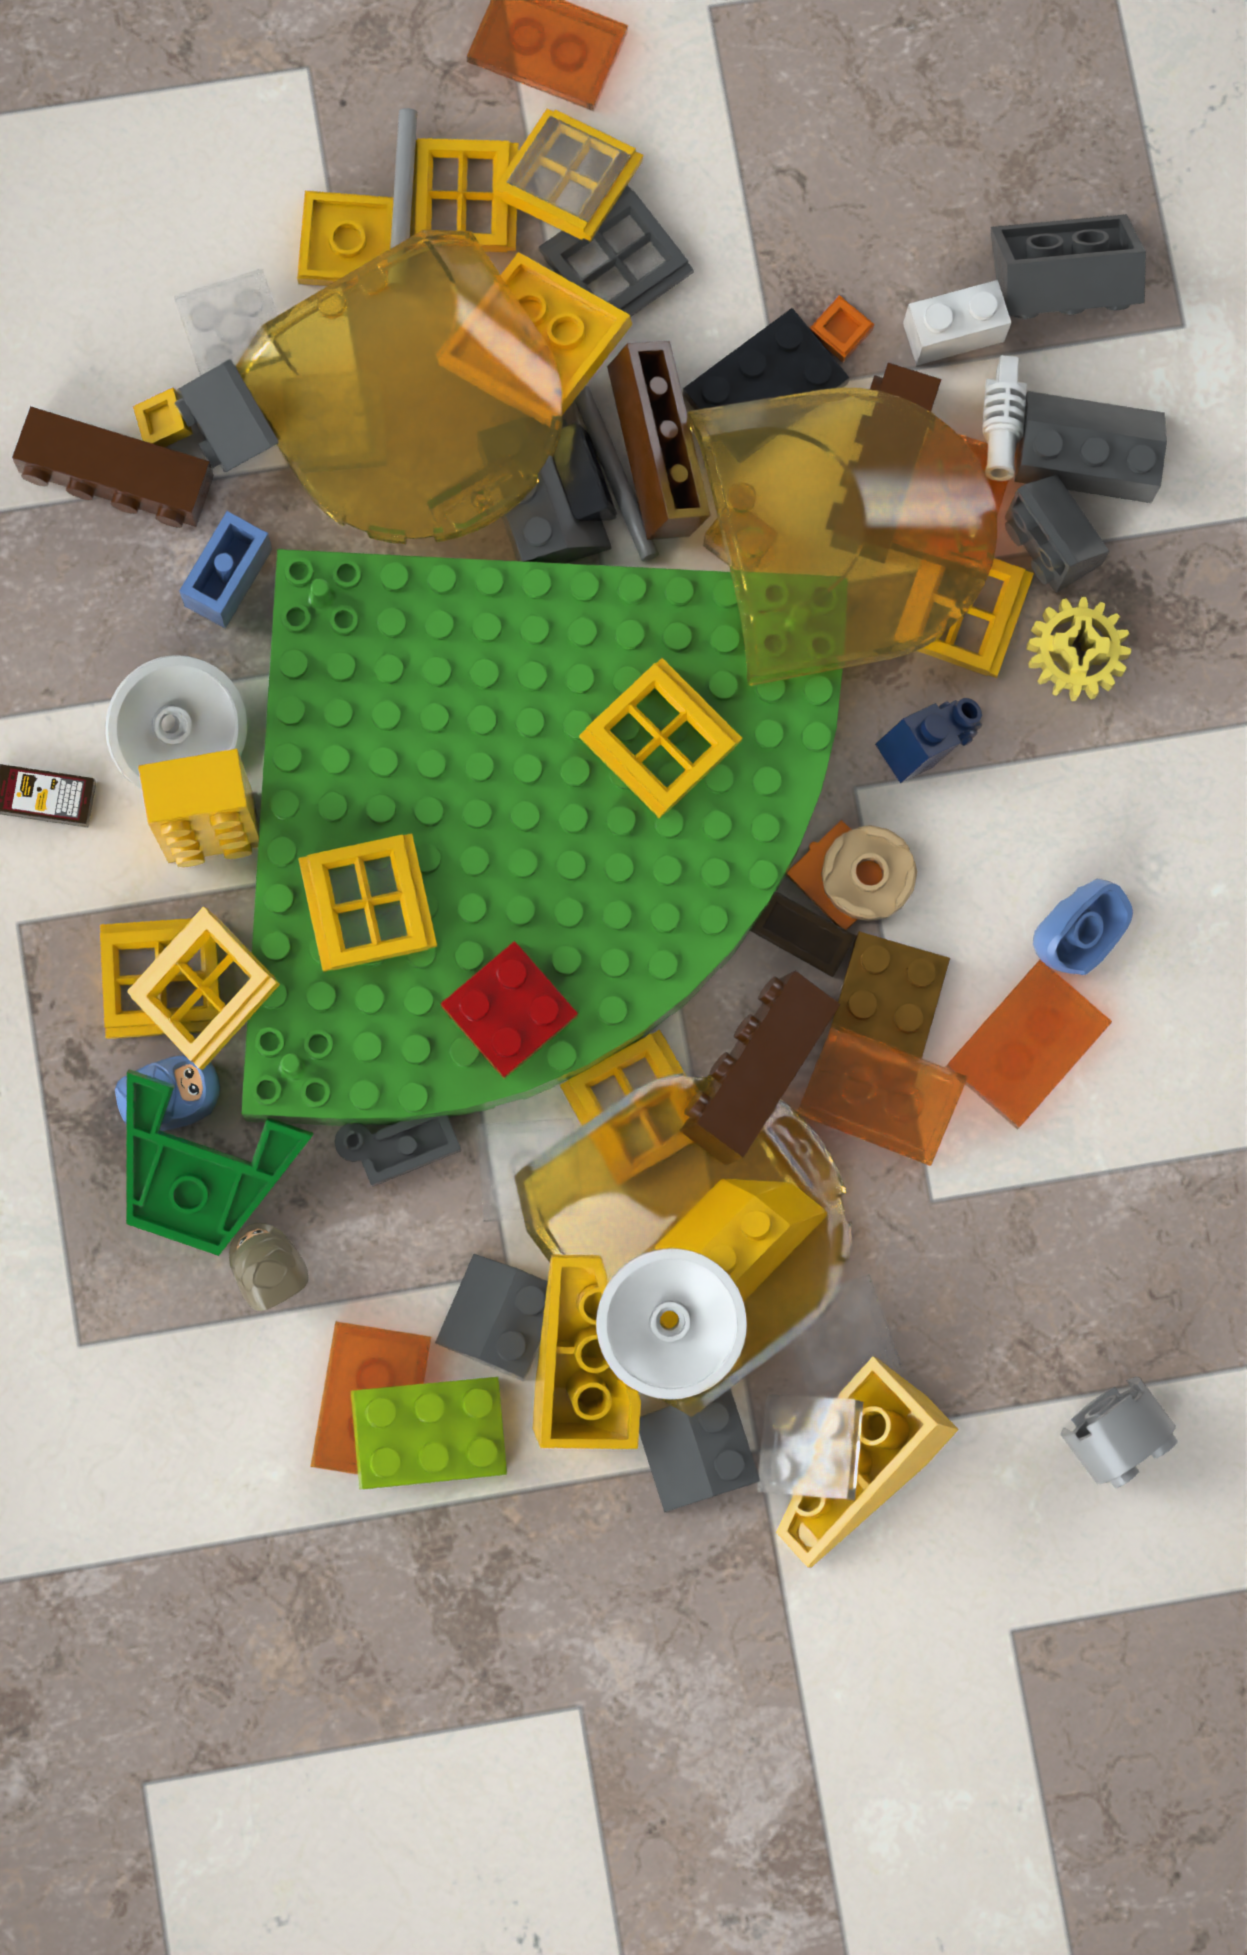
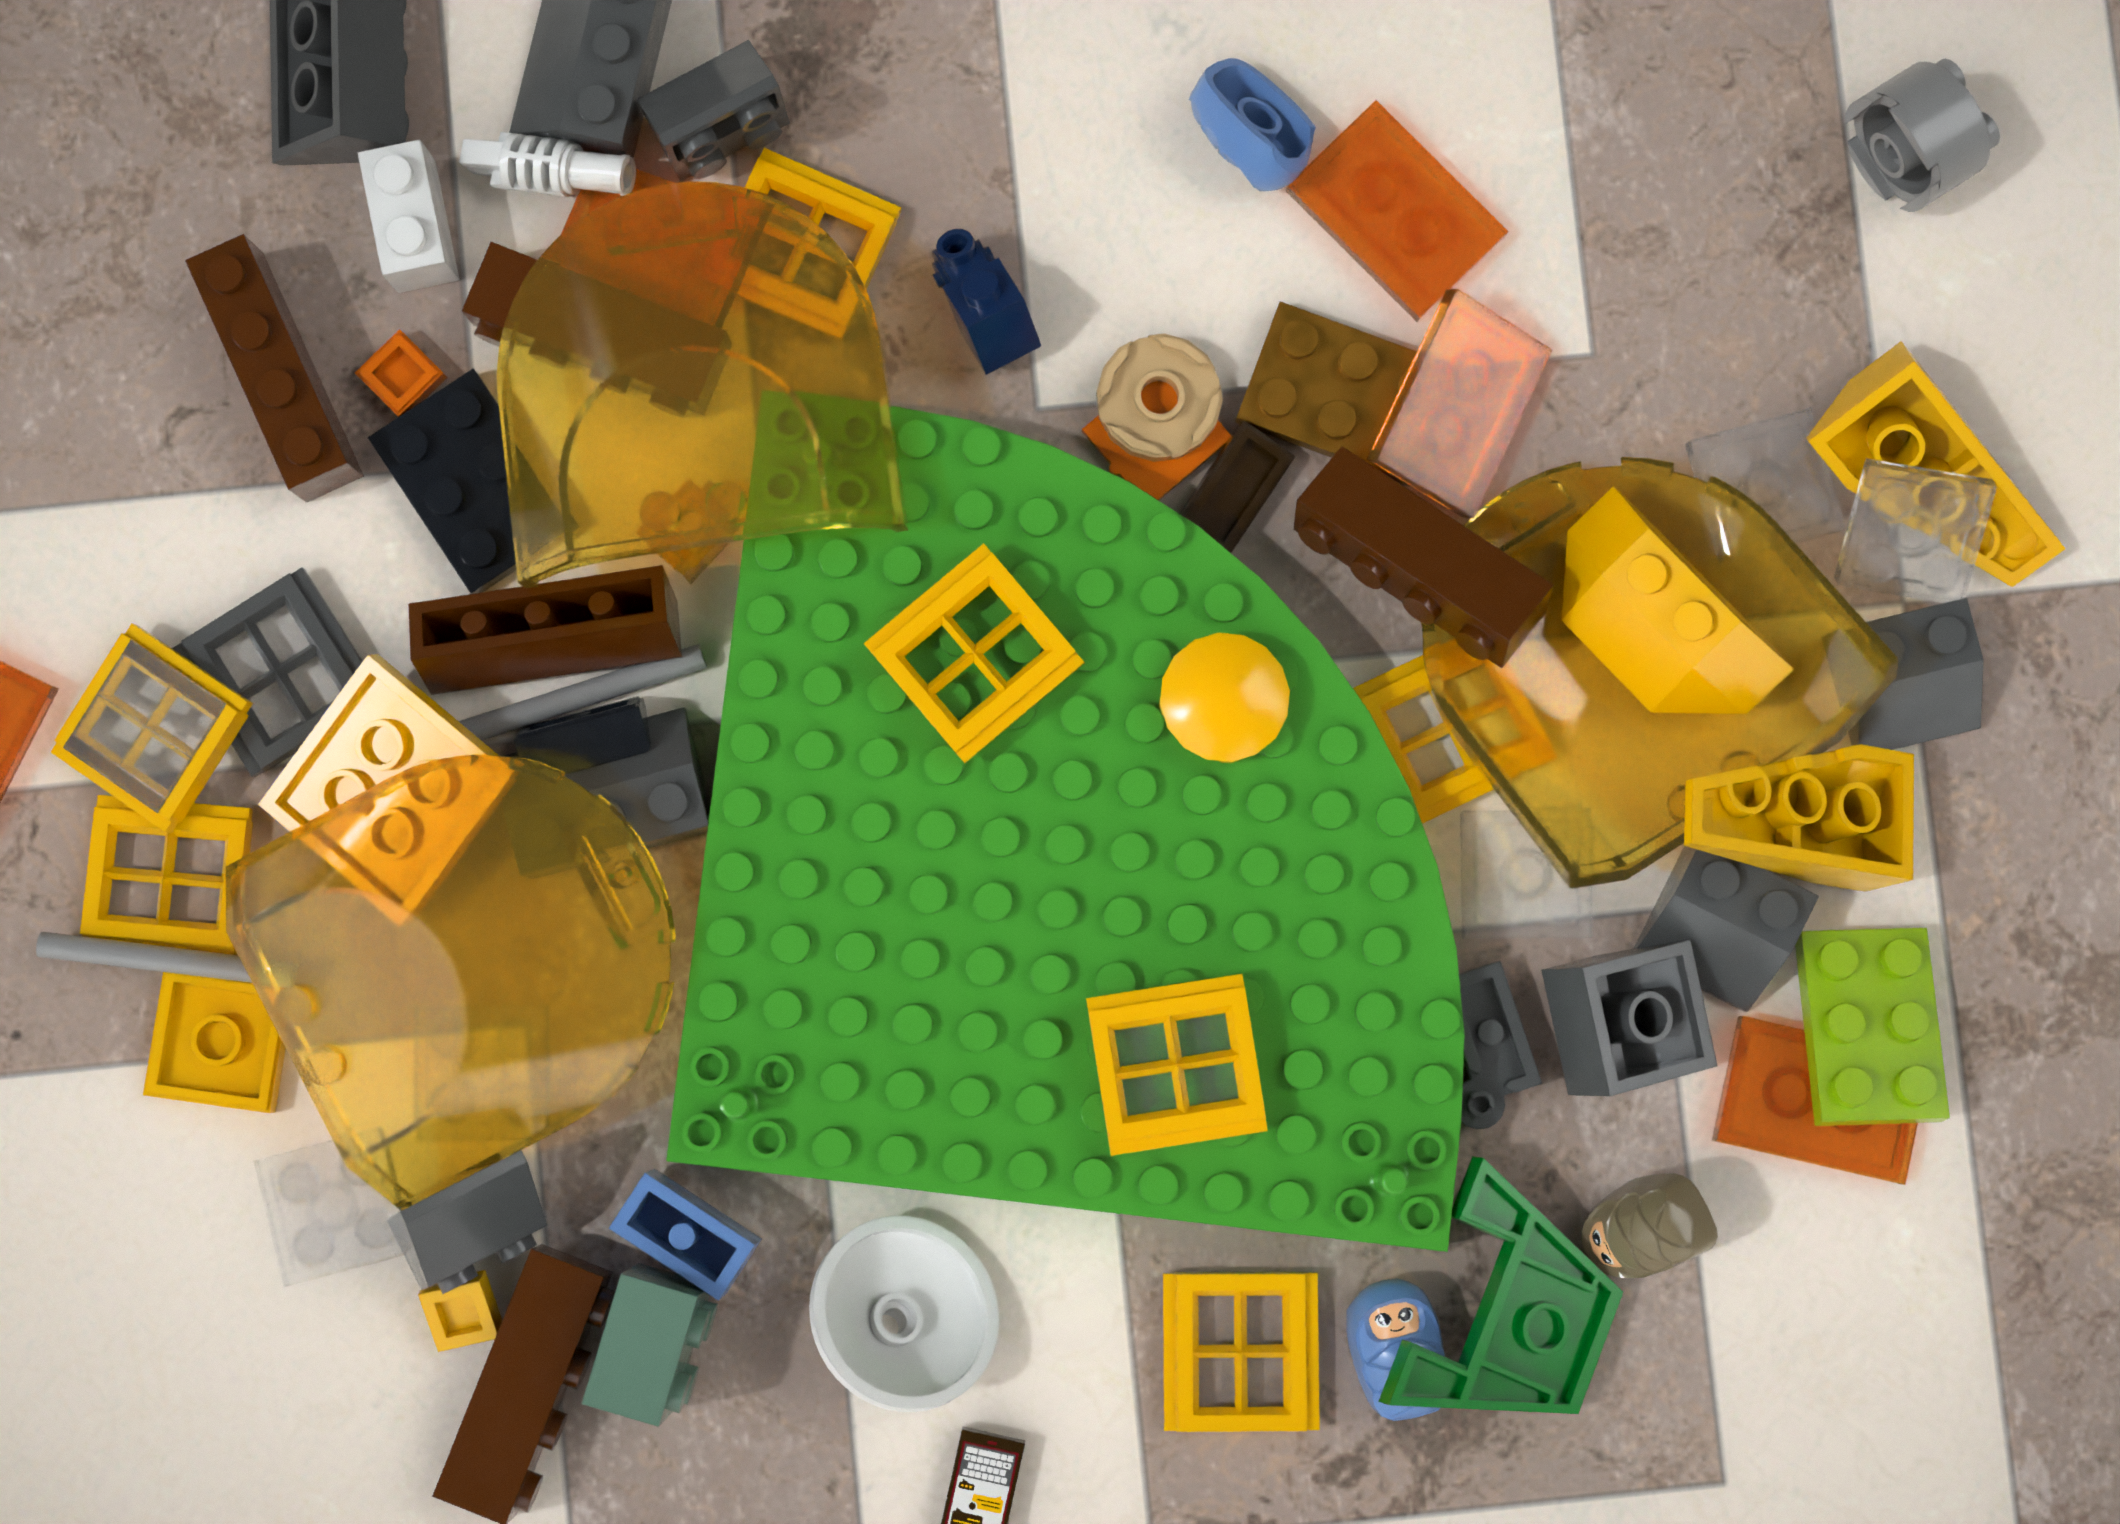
camera: 80 degrees left, 5 degrees up
(143, 547) = (648, 1346): none -> sand green brick
(200, 807) = (1034, 1295): yellow brick -> none
(230, 1016) = (1317, 1259): yellow piece -> none
(423, 1247) = (1629, 1019): none -> dark grey slope
(509, 1010) = (1334, 882): red plate -> none
(641, 921) = (1224, 697): none -> yellow dish
(680, 1358) = (1816, 683): white dish -> none
(836, 238) = (274, 368): none -> reddish brown brick
(1060, 649) = (897, 103): light yellow gear -> none

